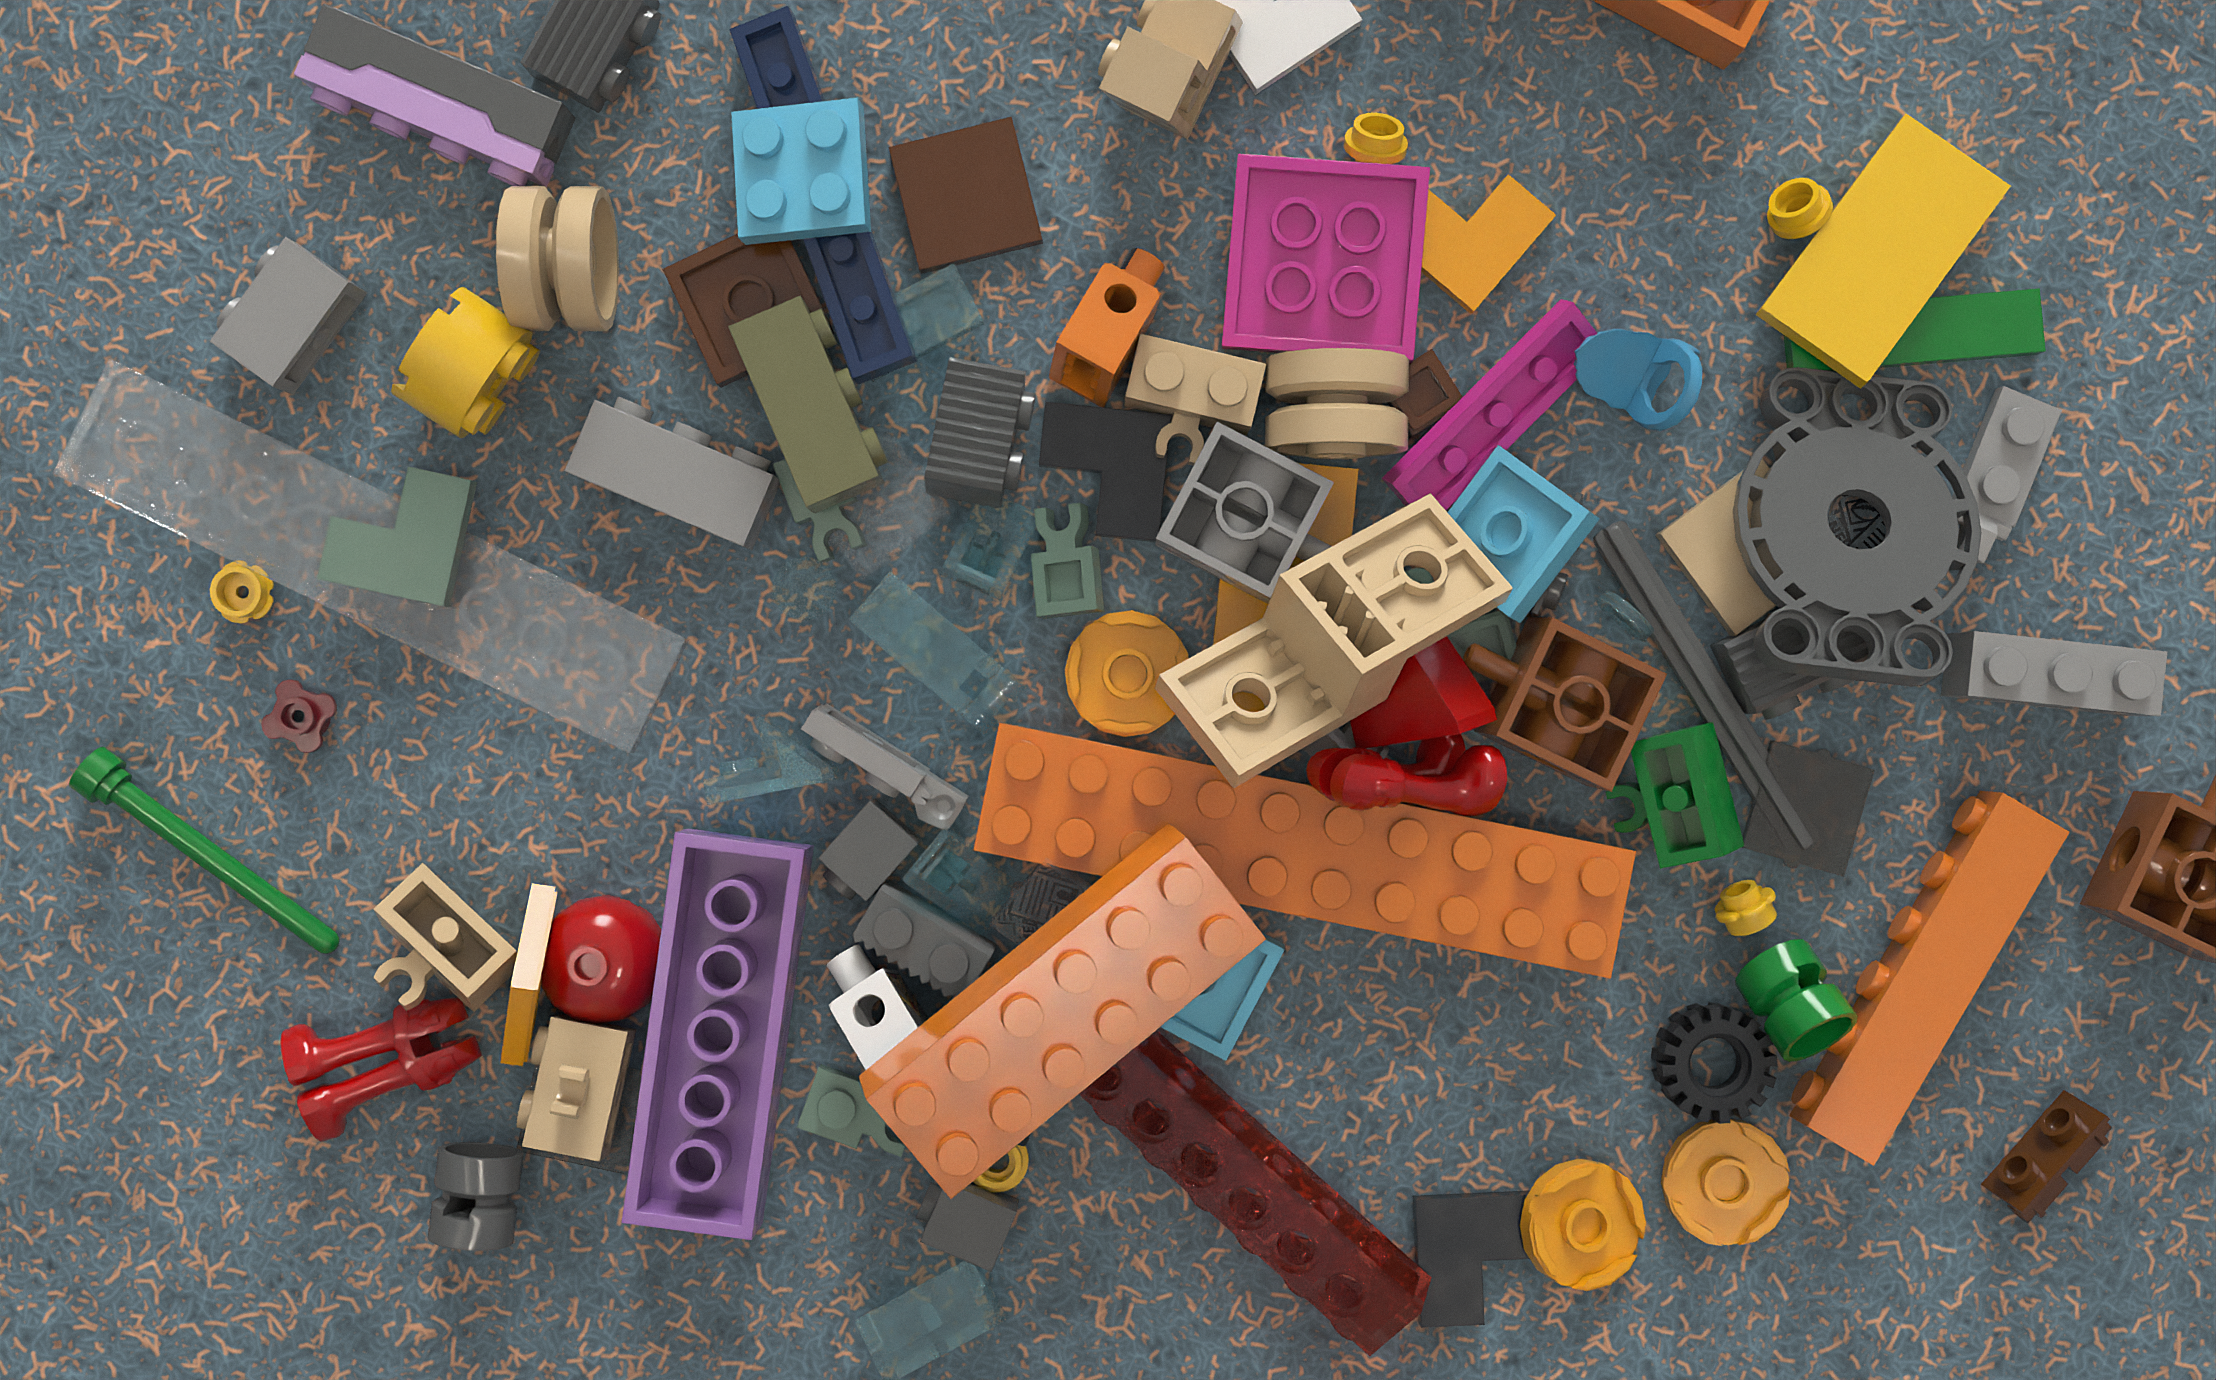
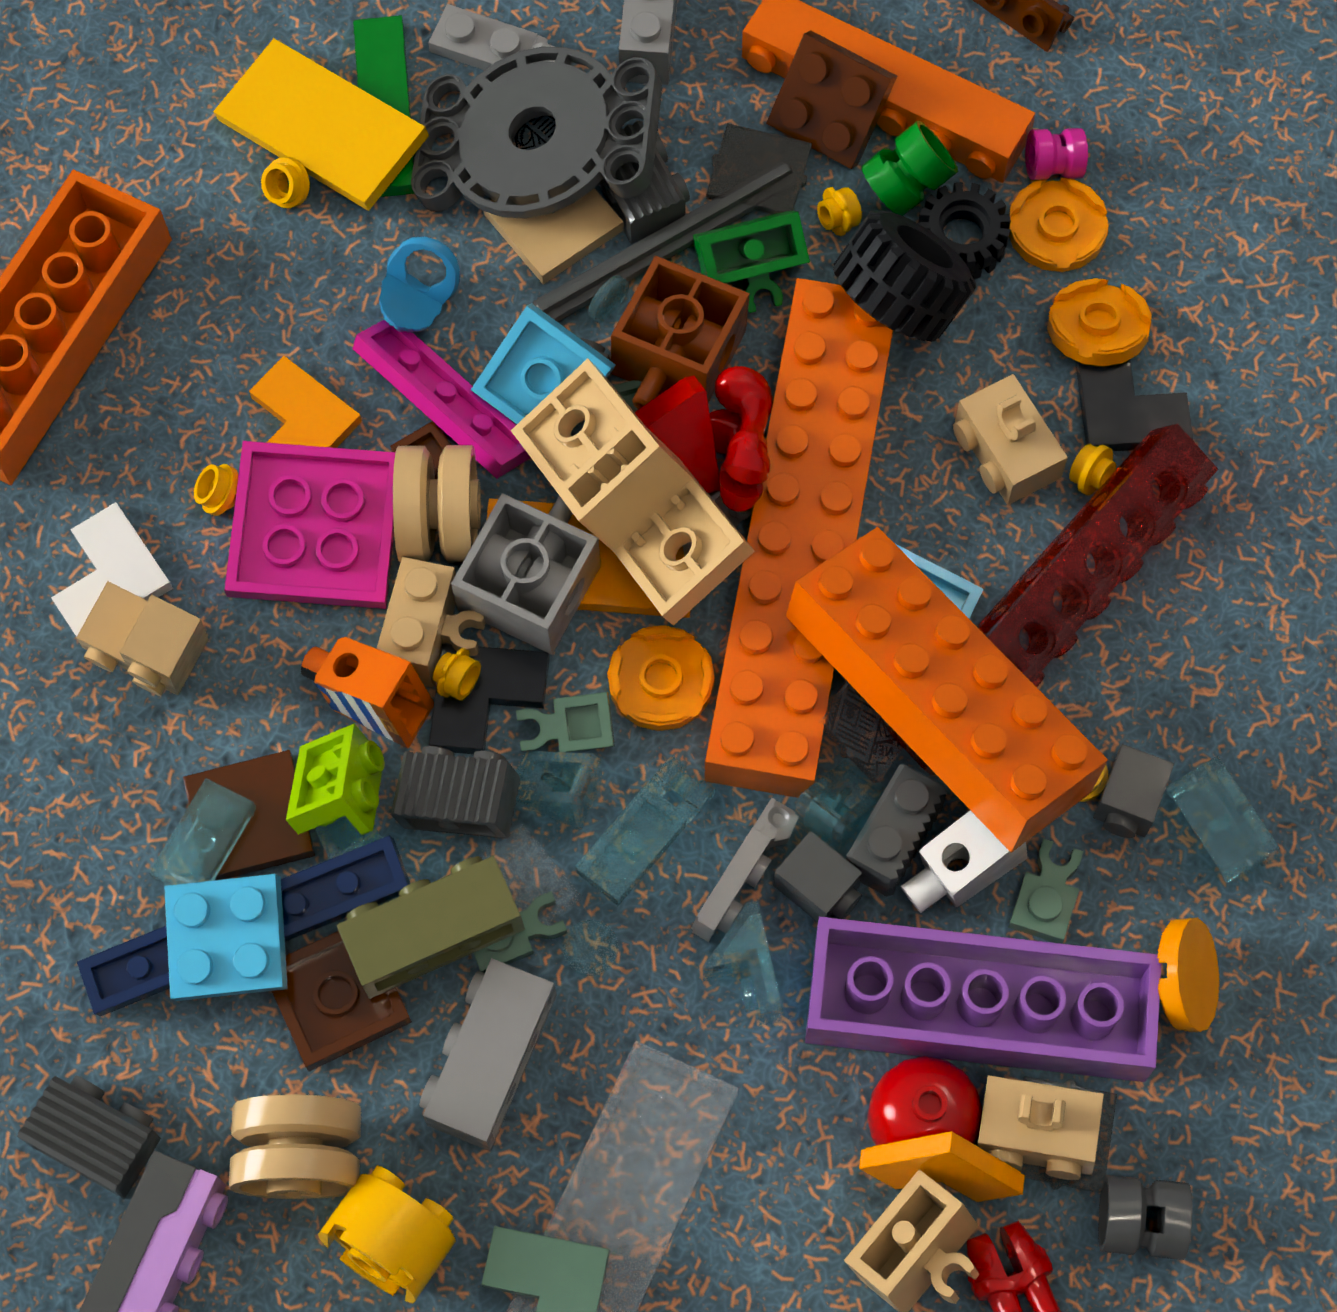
camera: 90 degrees left, 20 degrees down
(743, 1270) = (1192, 979): none -> light orange tile
(930, 142) = (203, 836): none -> clear light blue plate
(991, 293) = (336, 779): none -> lime bracket
(1124, 431) = (456, 674): none -> yellow plate
(1383, 1202) = (1092, 468): none -> yellow plate
(1421, 1102) = (1009, 440): none -> tan brick
(1630, 986) = (904, 275): none -> black tyre
(1820, 1187) = (1056, 153): none -> dark pink wheel
(1901, 904) = (831, 99): none -> reddish brown plate

